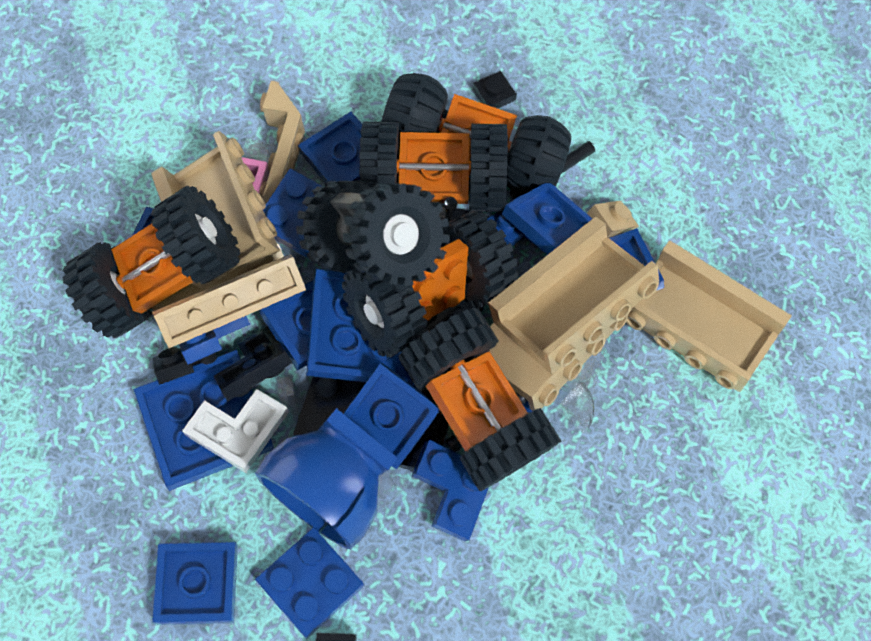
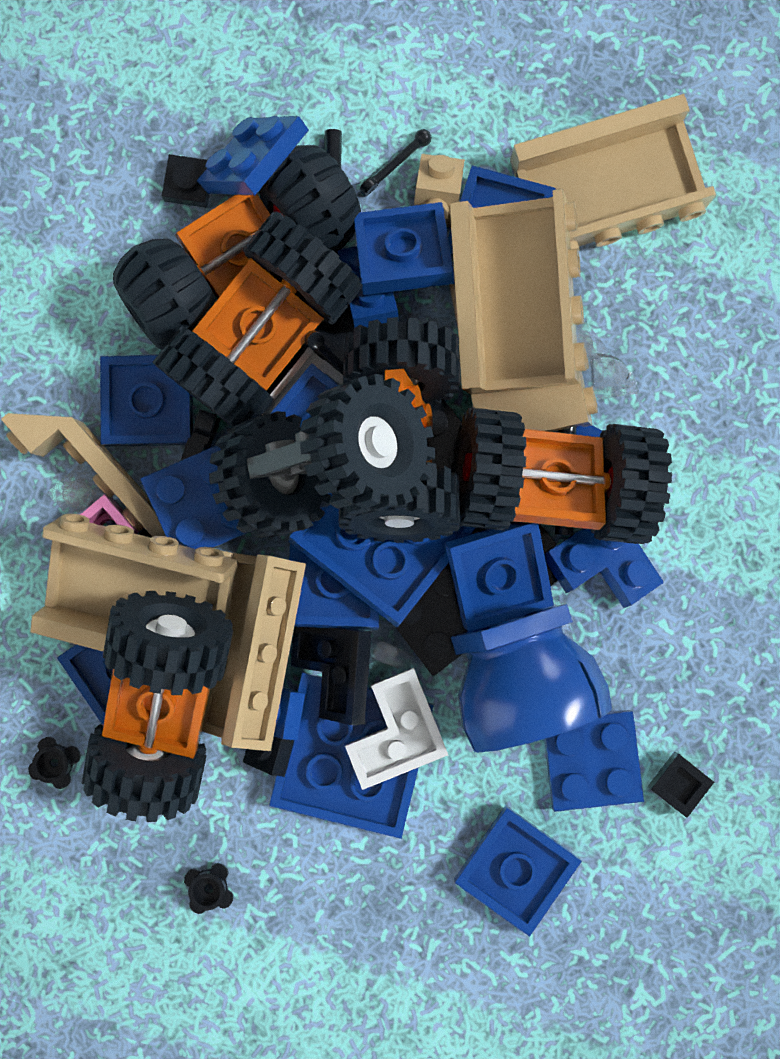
camera: 50 degrees left, 20 degrees up
(50, 384) = (201, 899): none -> black plate
(74, 242) = (41, 765): none -> black plate
(545, 105) = (252, 155): none -> blue plate
(577, 186) = (422, 139): none -> black hinge

